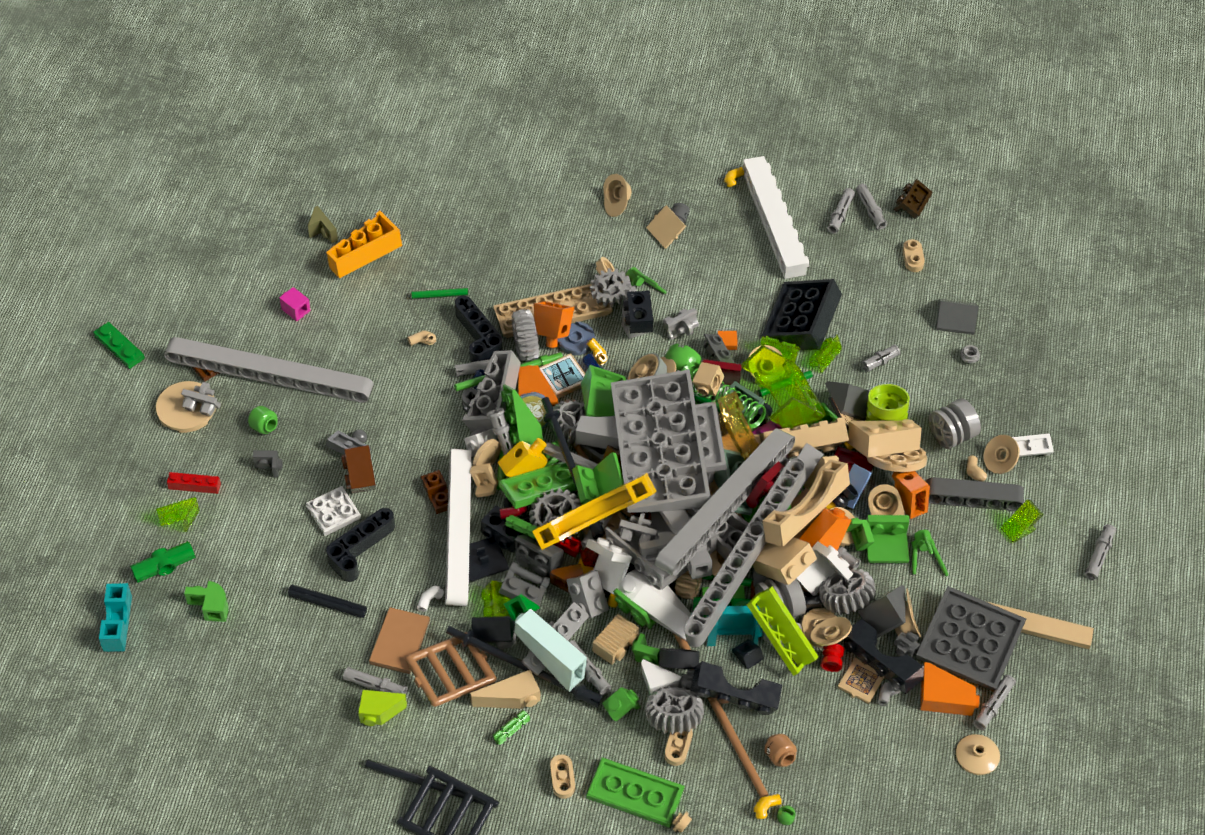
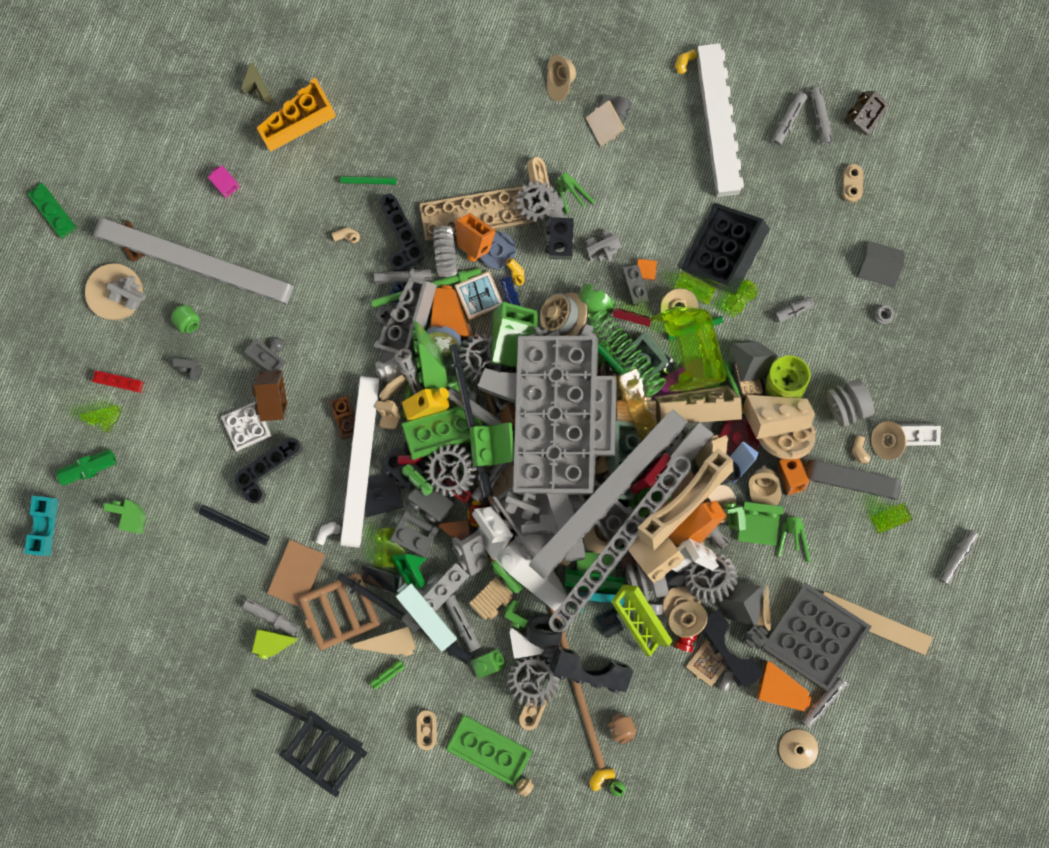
camera: 15 degrees right, 30 degrees up
(594, 511) = (514, 484): yellow arch -> none
(708, 379) = (613, 343): tan brick -> none

